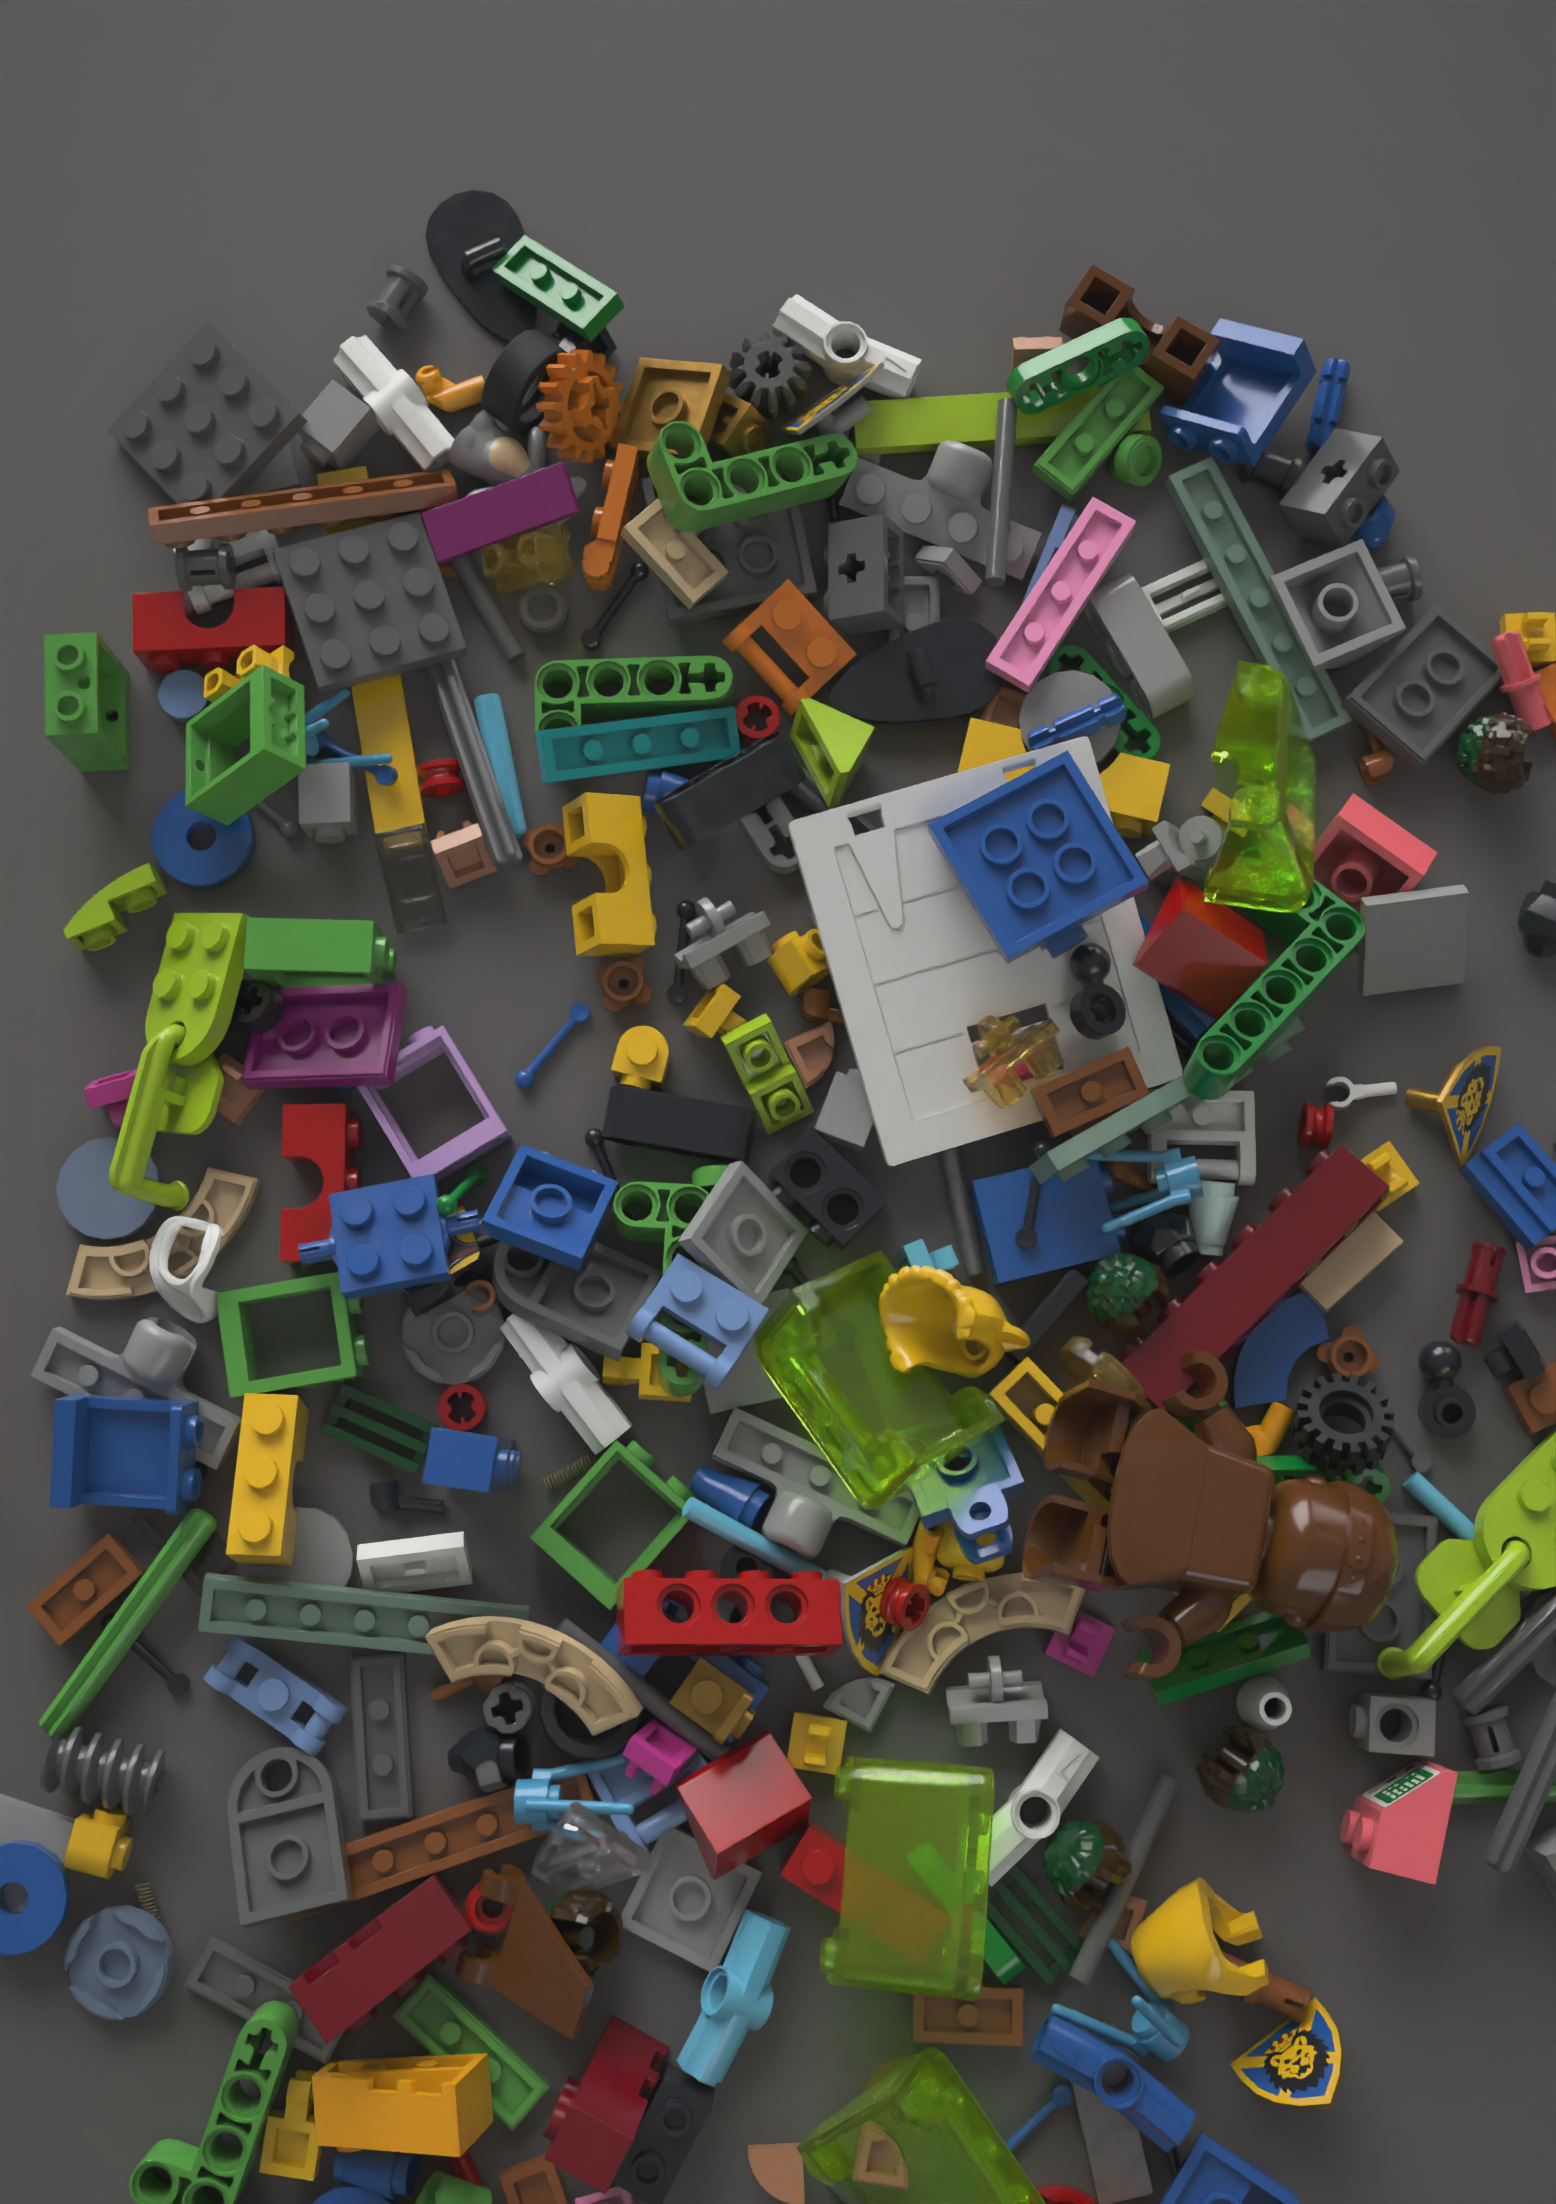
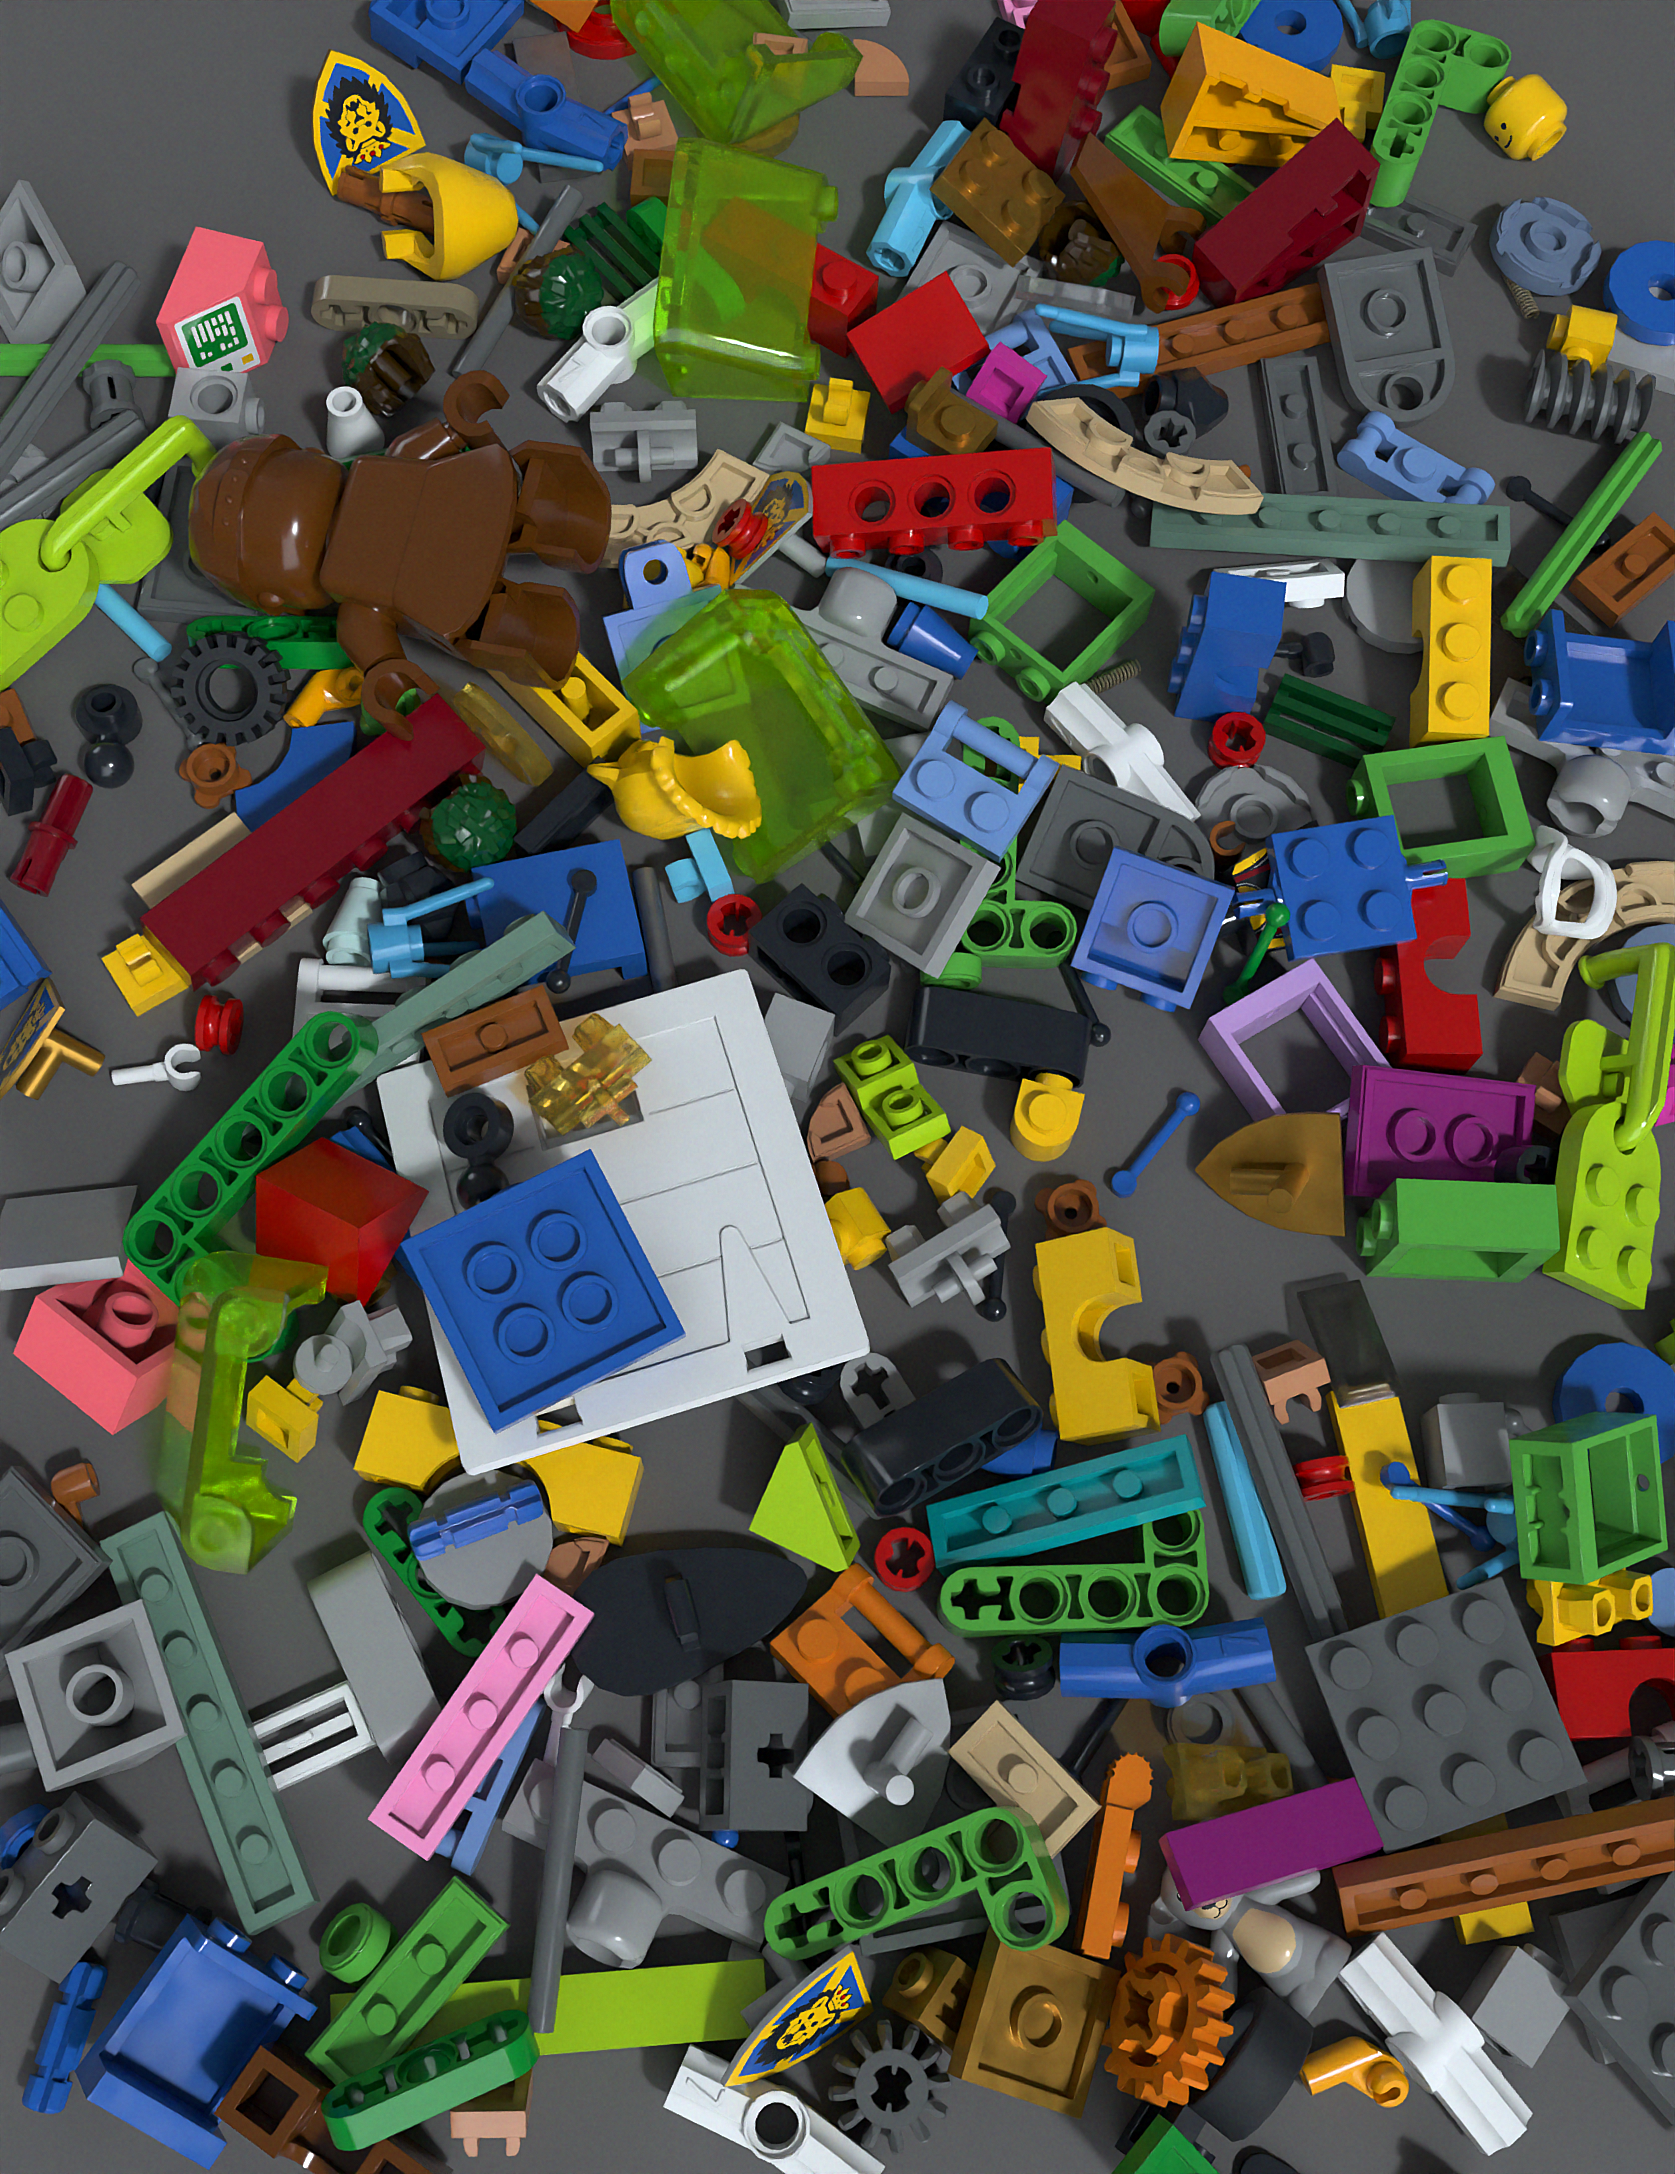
camera: 175 degrees right, 10 degrees down
(120, 2121) = (1525, 117): none -> yellow head
(452, 1010) = (1283, 1172): none -> pearl gold shield
(534, 640) = (1212, 1657): none -> blue piece
(661, 1994) = (998, 192): none -> pearl gold plate
(667, 626) = (1023, 1667): none -> black bush
(773, 567) = (884, 1760): none -> light grey shield
(882, 1223) = (731, 905): none -> red bush
(1003, 615) = (563, 1704): none -> white hand
(1011, 2079) = (647, 126): none -> nougat tile
(1240, 1850) = (430, 307): none -> dark tan beam

